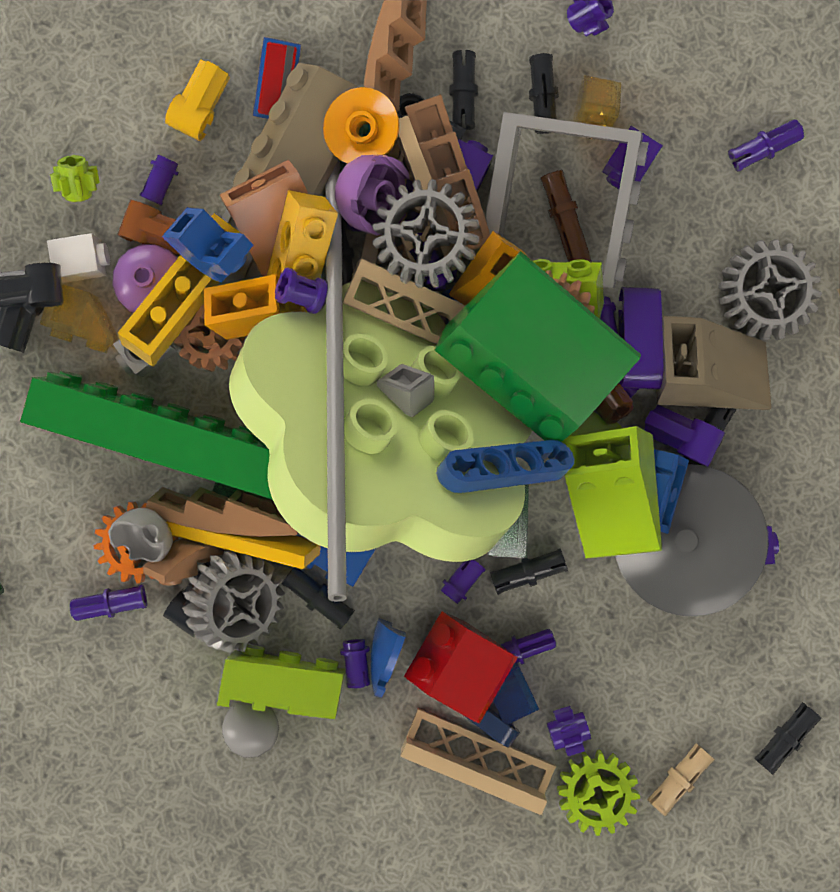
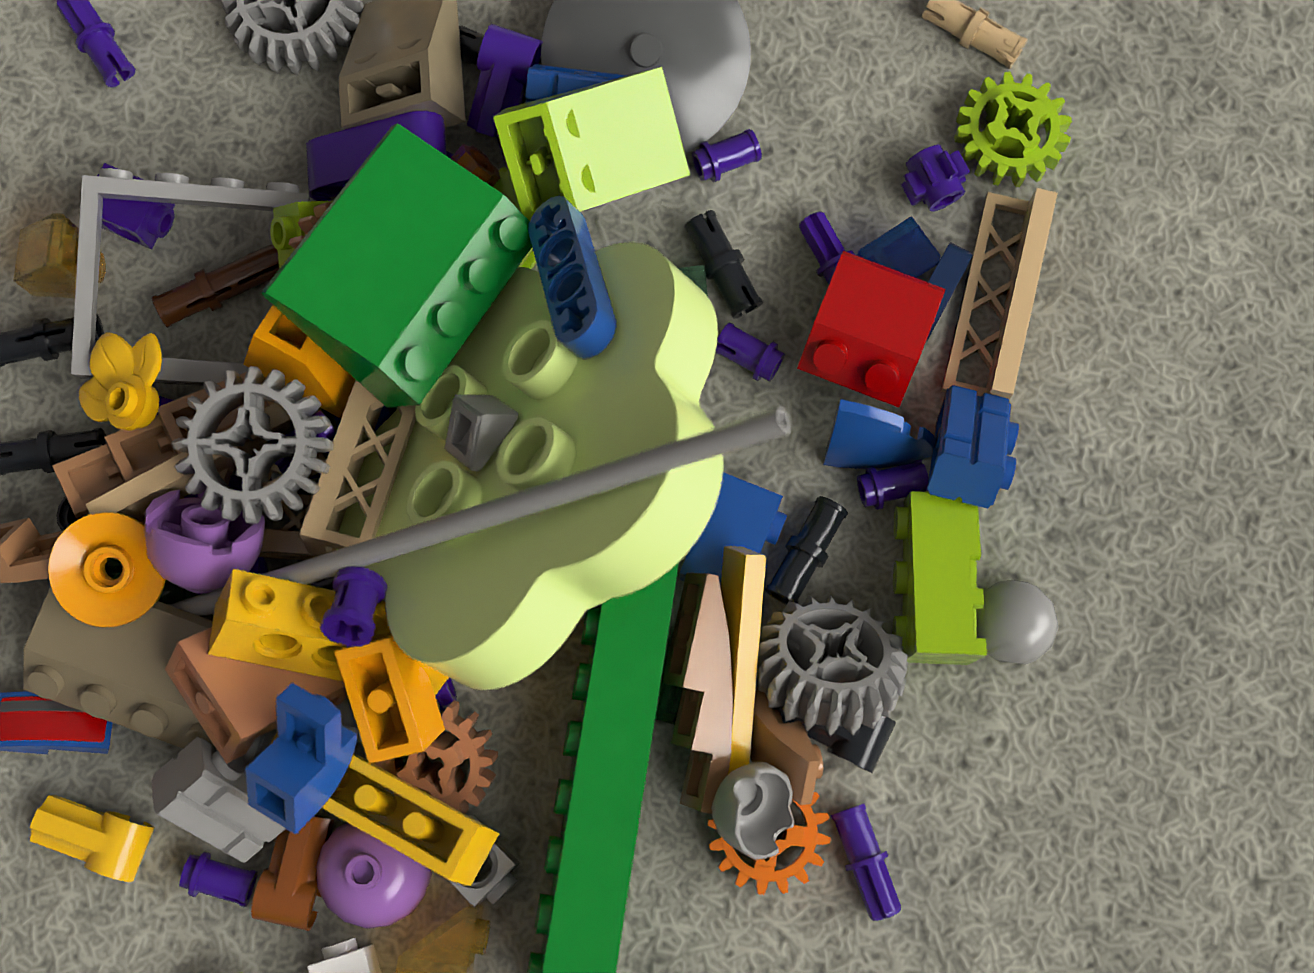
camera: 90 degrees left, 10 degrees down
(203, 179) = (211, 801): none -> light grey brick
(367, 722) = (972, 447): none -> blue brick
(490, 147) = (122, 381): none -> yellow plate
(609, 585) = (726, 155): none -> dark purple pin

